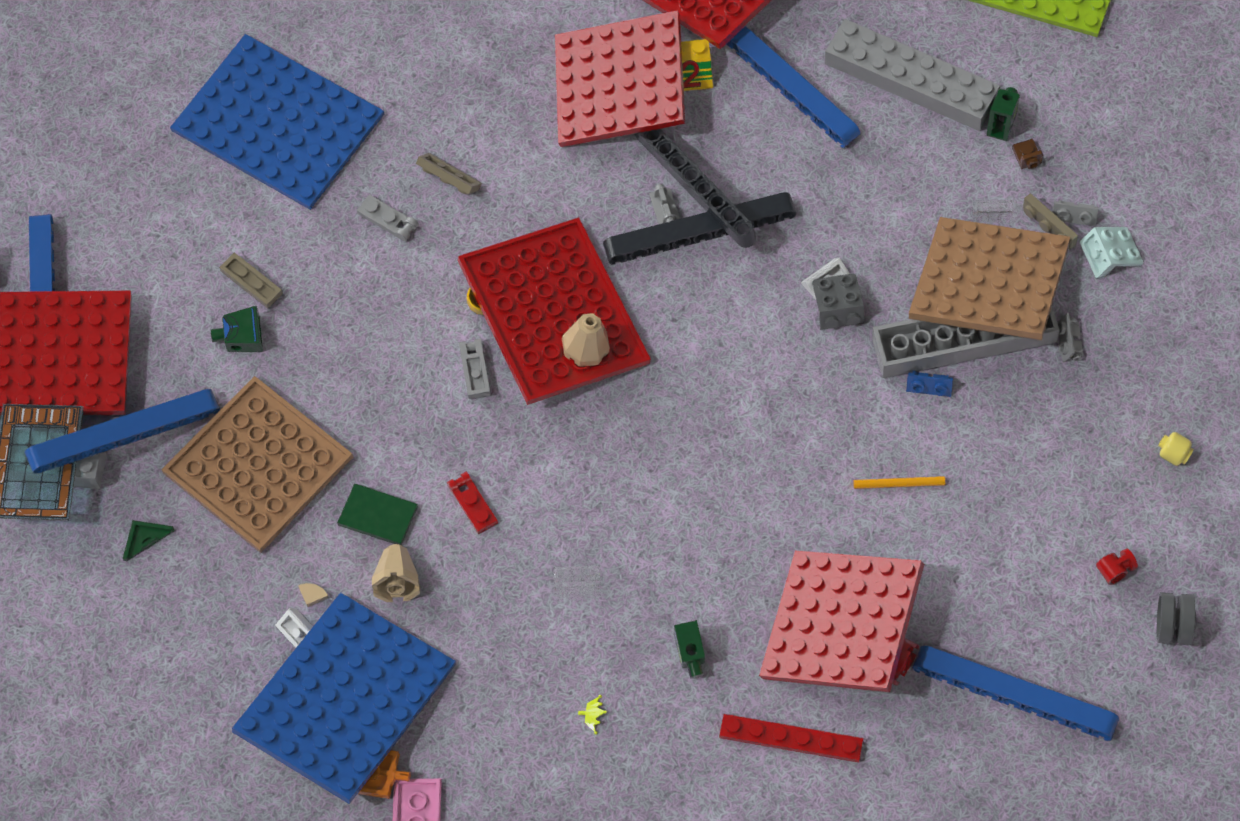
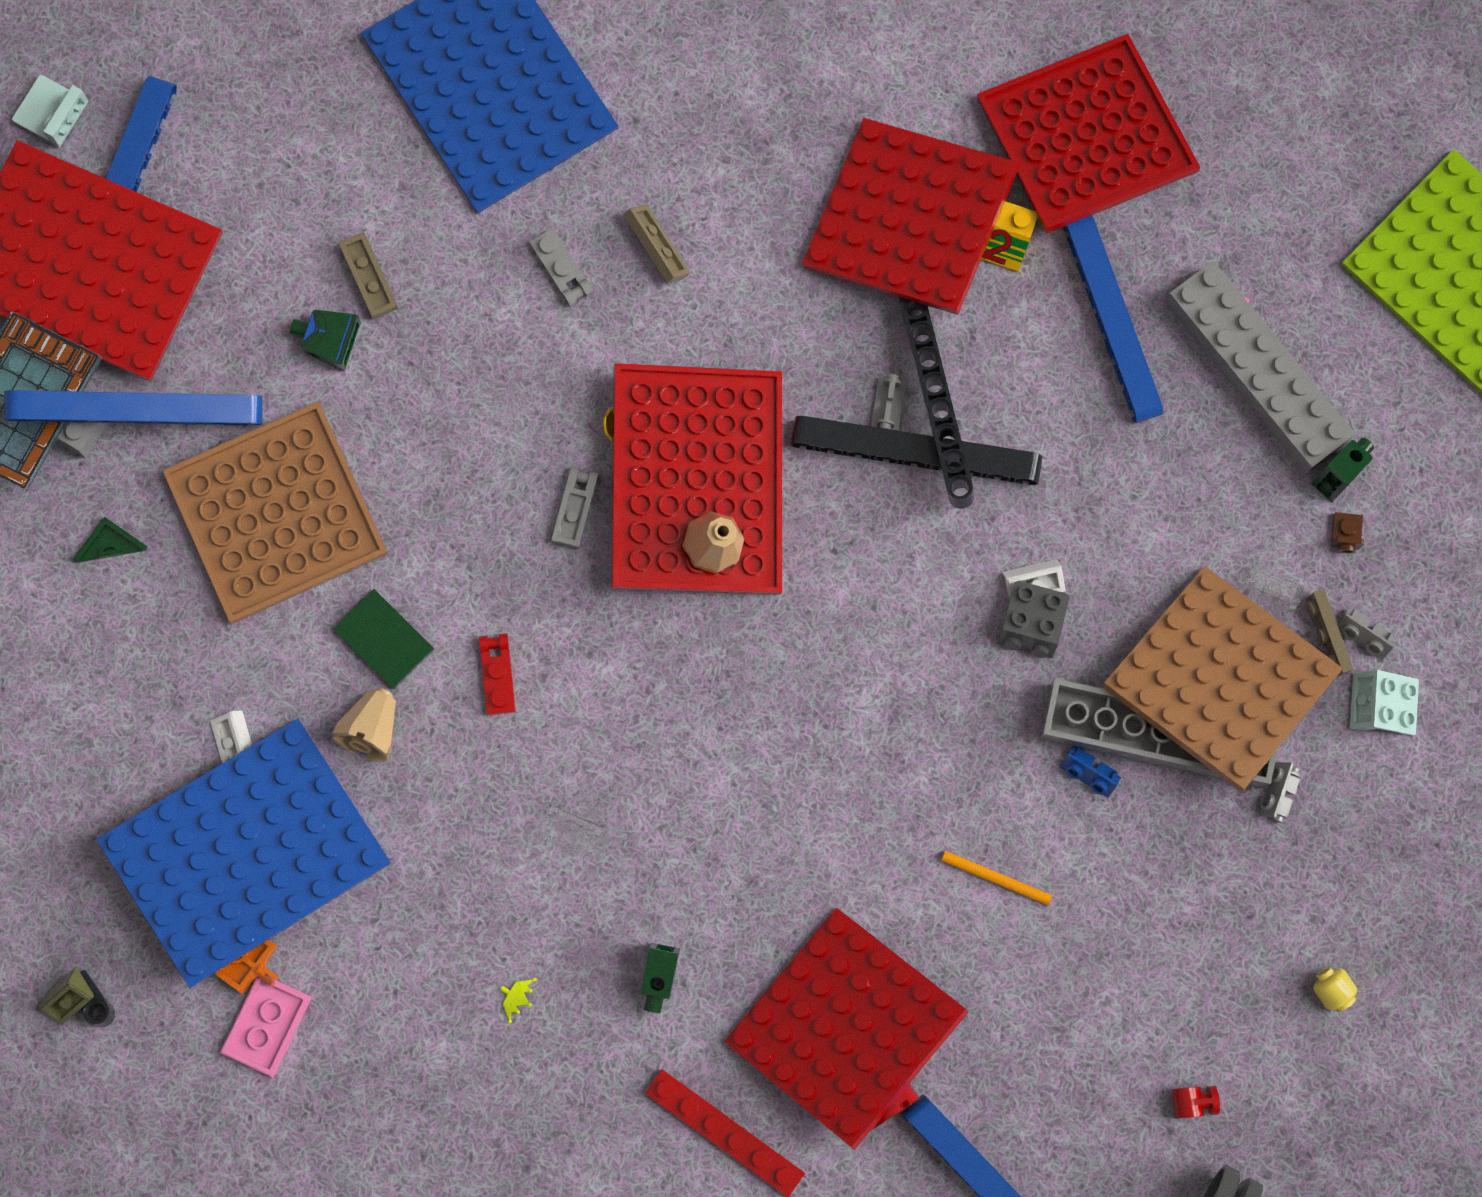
camera: 15 degrees right, 15 degrees up
(312, 593) = (267, 702): tan tile -> none

